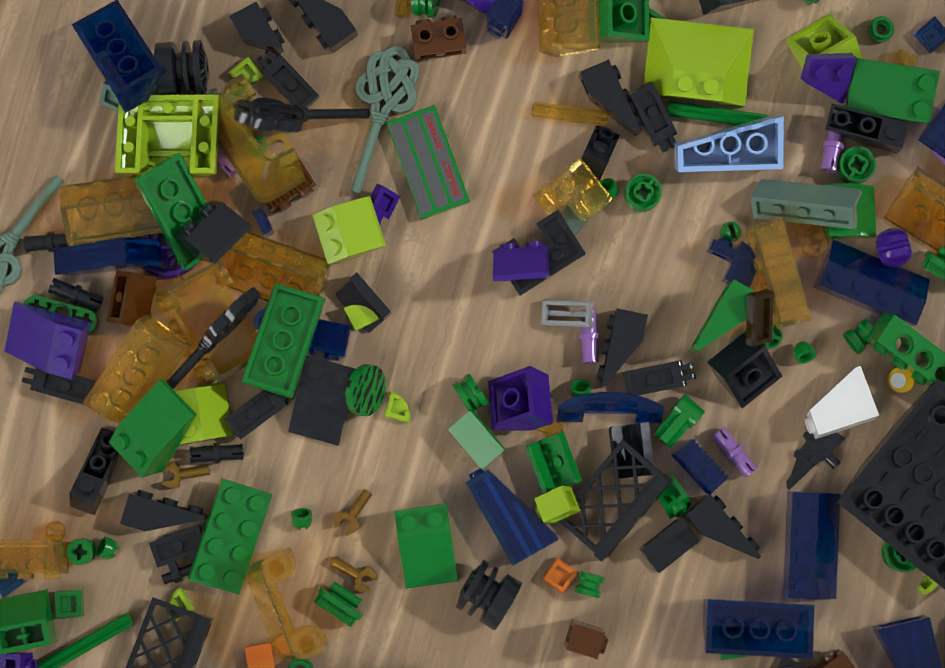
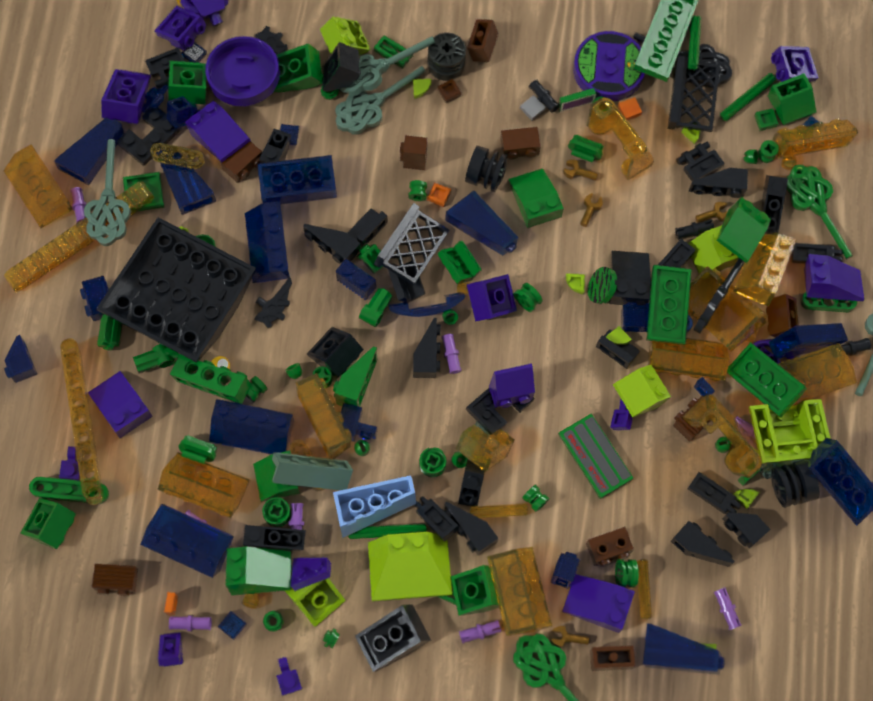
camera: 165 degrees right, 15 degrees down
(32, 449) = (804, 198): none -> green piece
(75, 294) = (822, 315): black pin -> none
(212, 231) = (739, 366): black slope -> none
(230, 536) = (670, 177): green plate -> none
(273, 114) = (716, 447): black piece -> none
(301, 518) = (629, 199): green hinge -> none
(377, 117) = (631, 519): sand green piece -> none
(430, 631) = (520, 142): none -> reddish brown brick
(476, 439) = (517, 266): panel -> none
(519, 119) = (535, 498): none -> green wheel
(556, 505) = (451, 234): lime brick -> none
(588, 314) = (455, 358): light grey tile -> none
(657, 378) = (396, 334): black hinge -> none
(734, 452) = (332, 294): medium lavender pin -> none
(759, 317) = (333, 377): dark brown tile -> none
(843, 407) = (260, 336): white slope -> none
(893, 247) = (240, 454): dark purple piece -> none

